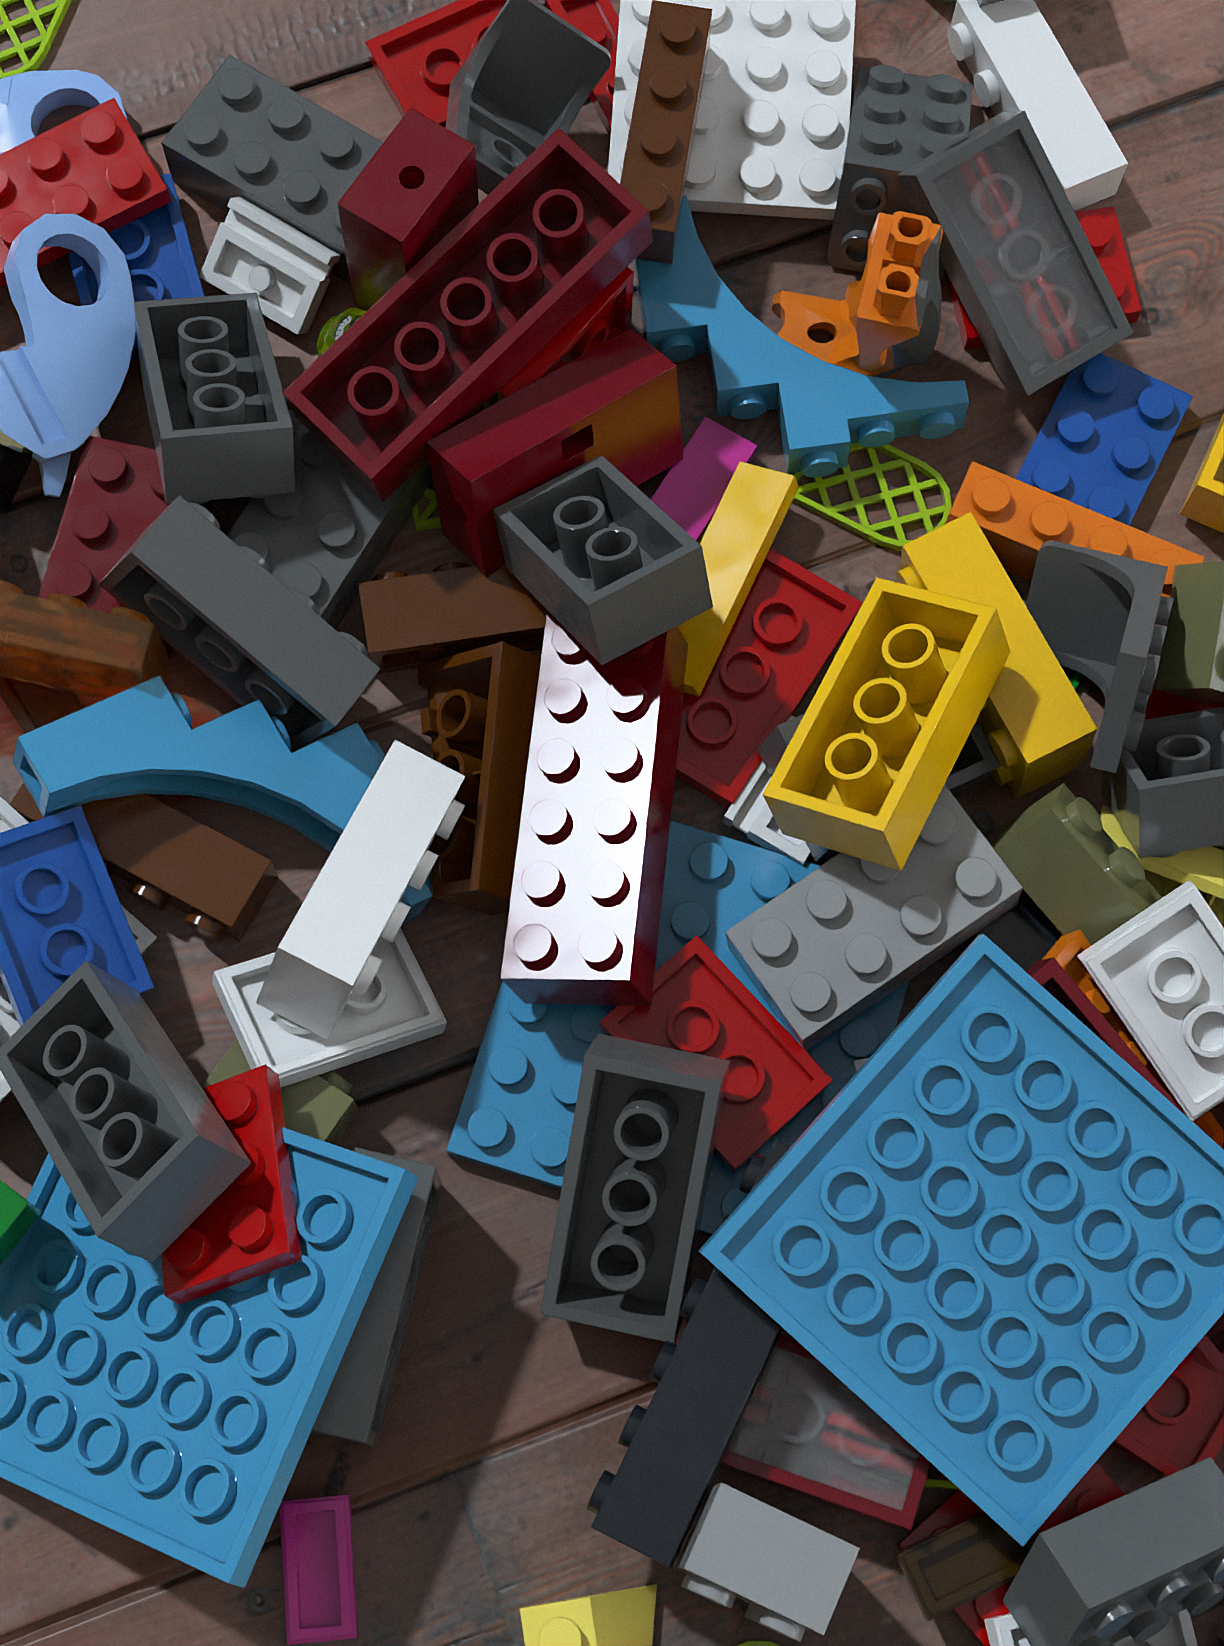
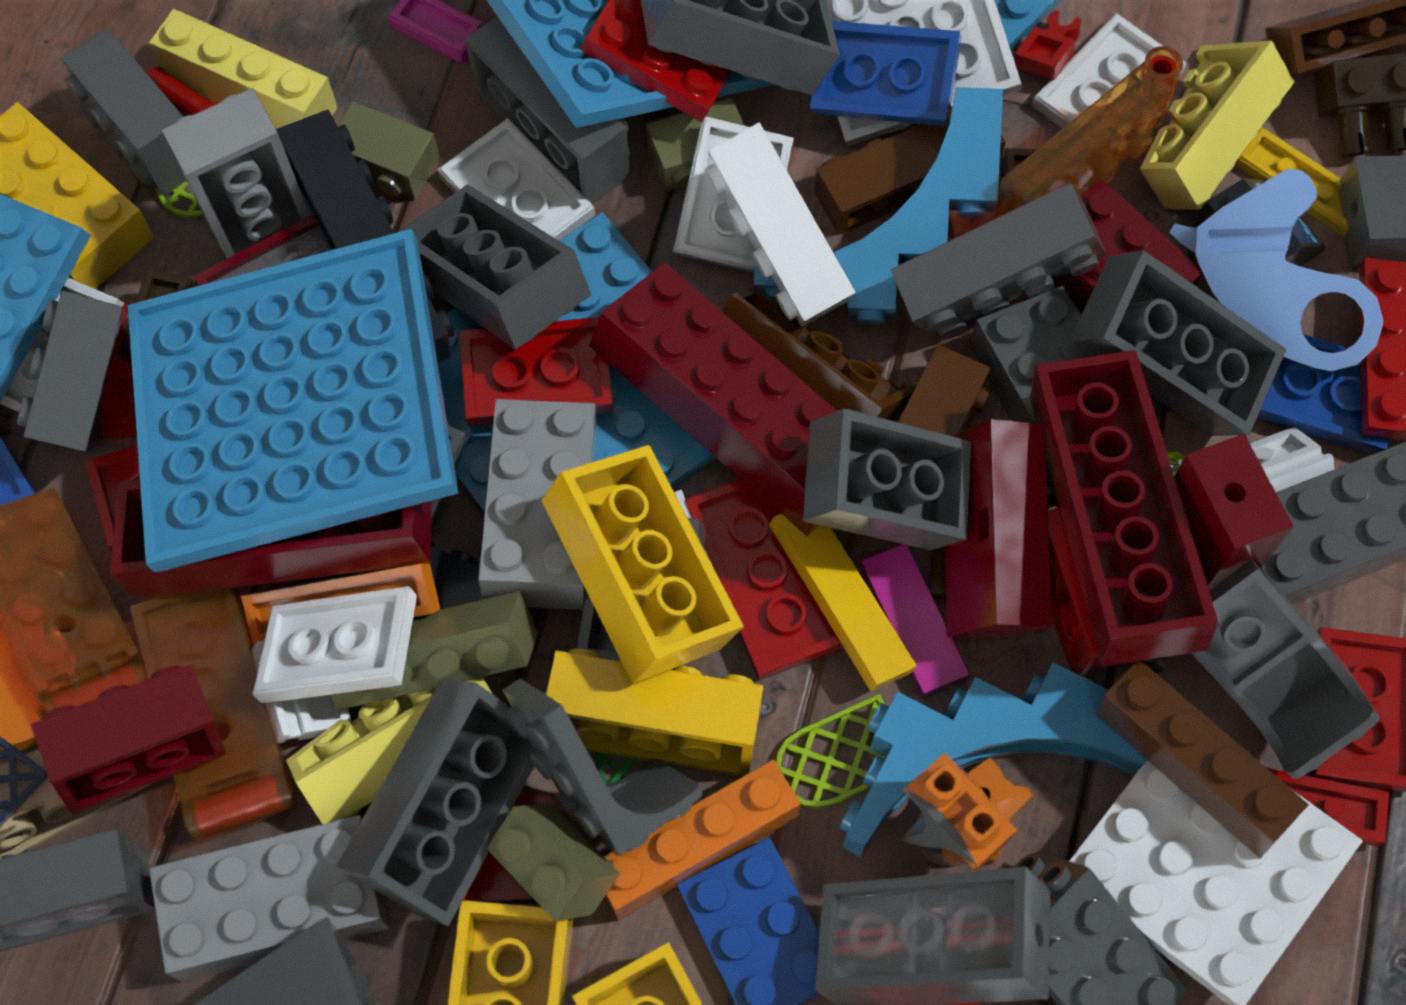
camera: 130 degrees right, 5 degrees down
(482, 1283) = (520, 179): none -> white tile
(552, 1472) = (394, 150): none -> olive brick

